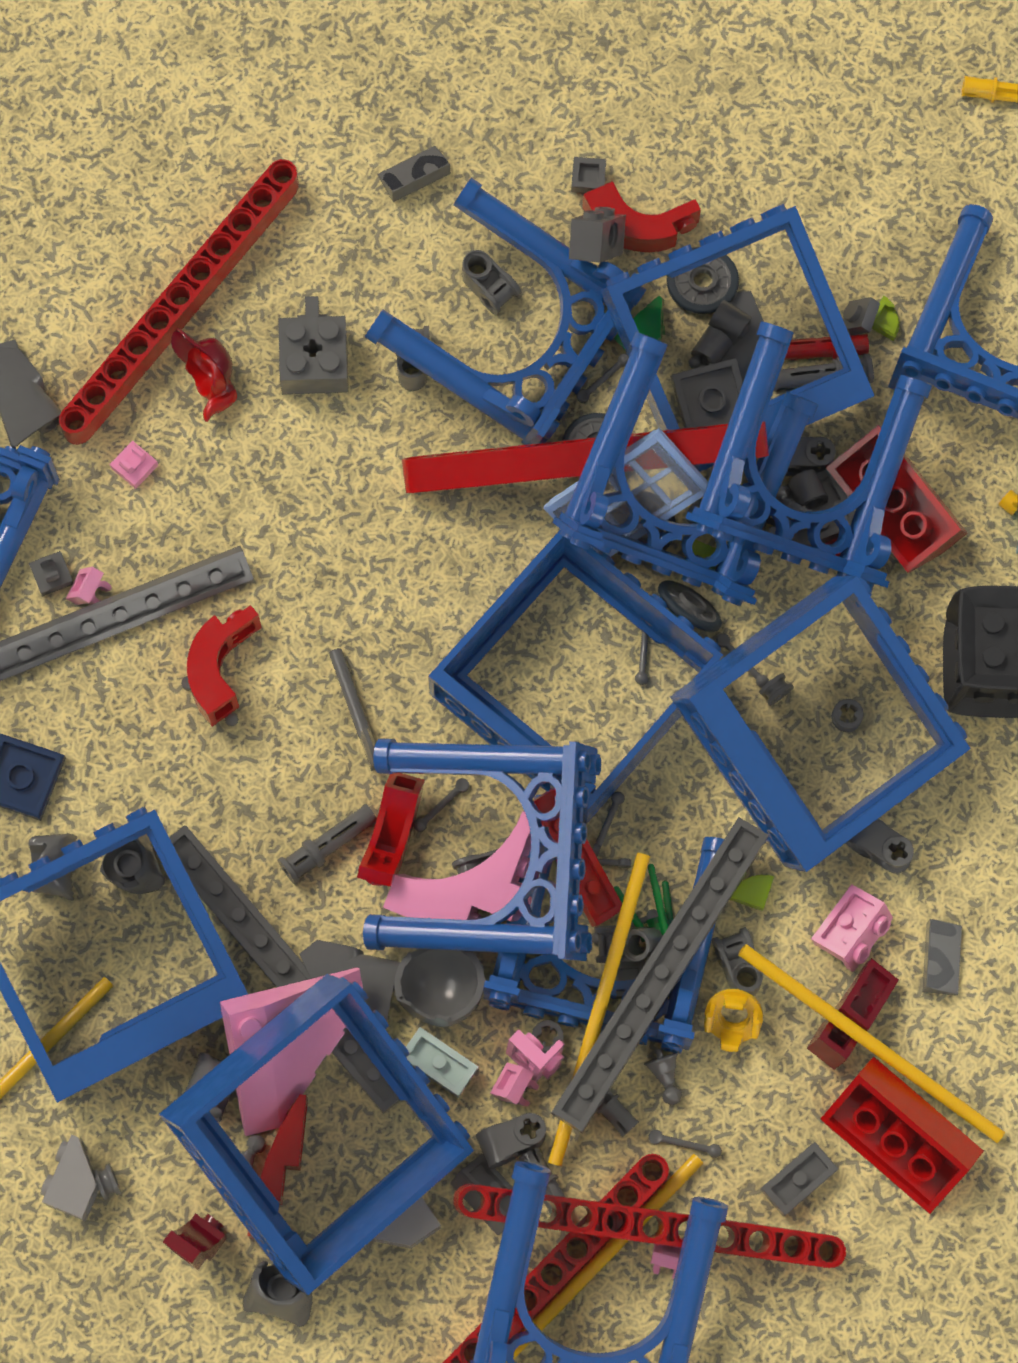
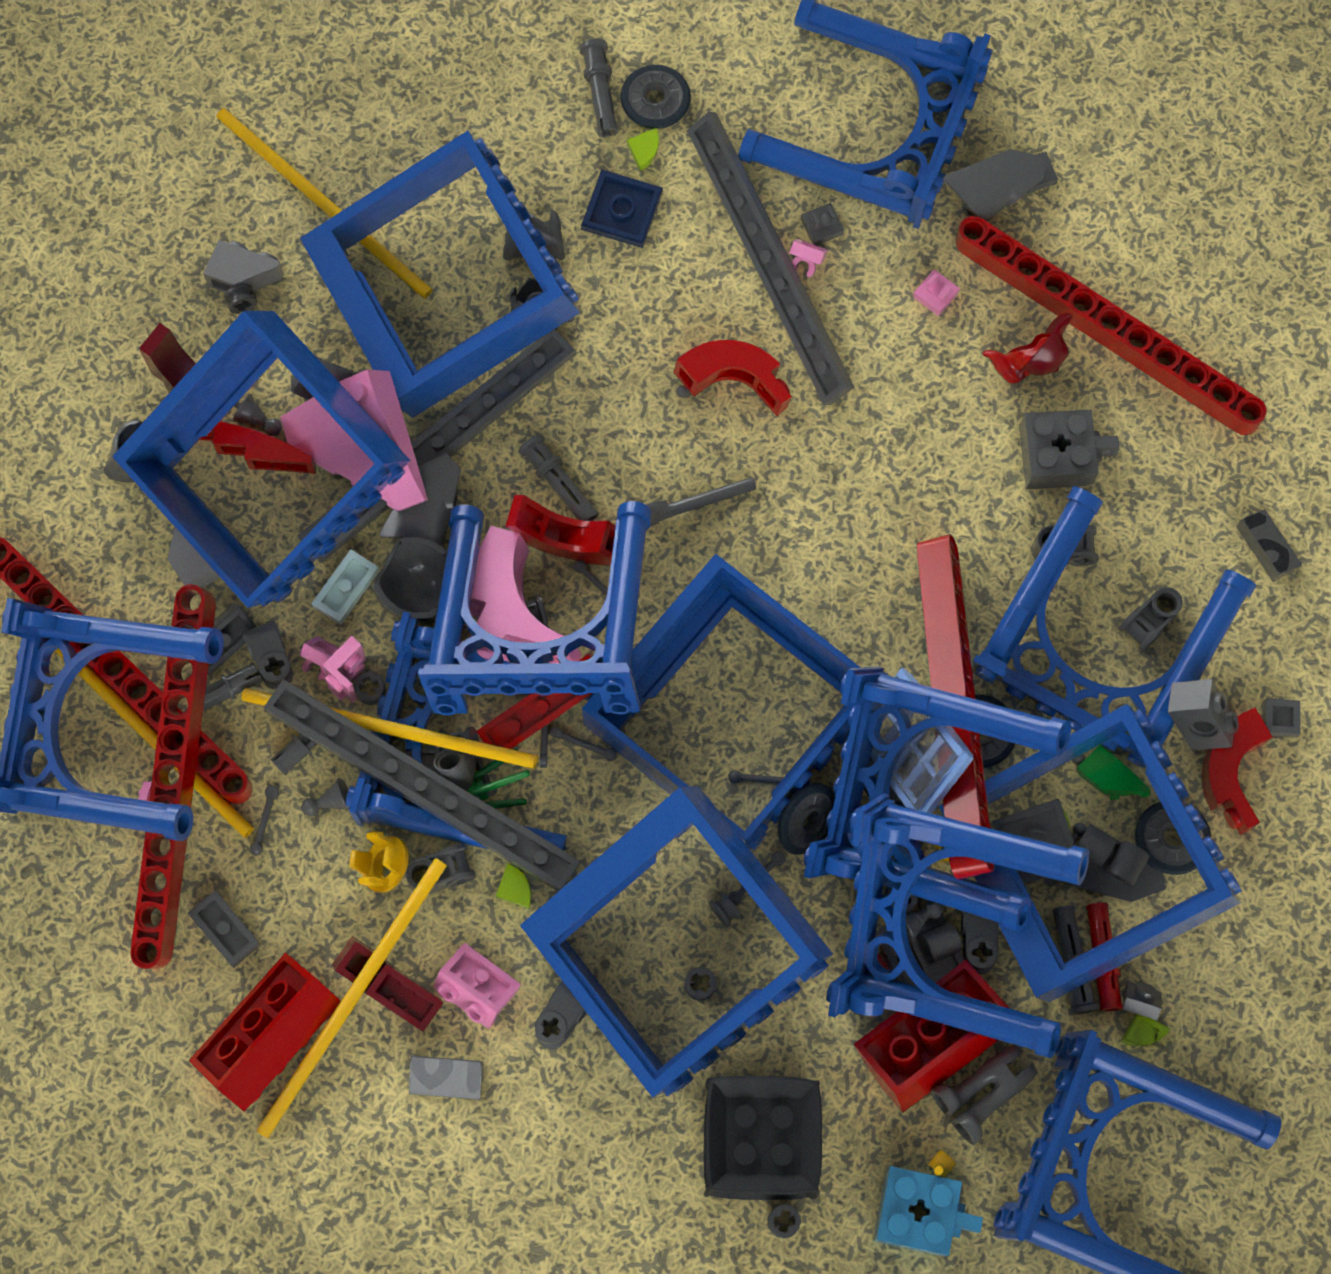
camera: 90 degrees right, 0 degrees up
(940, 440) = (993, 1071): none -> dark grey piece

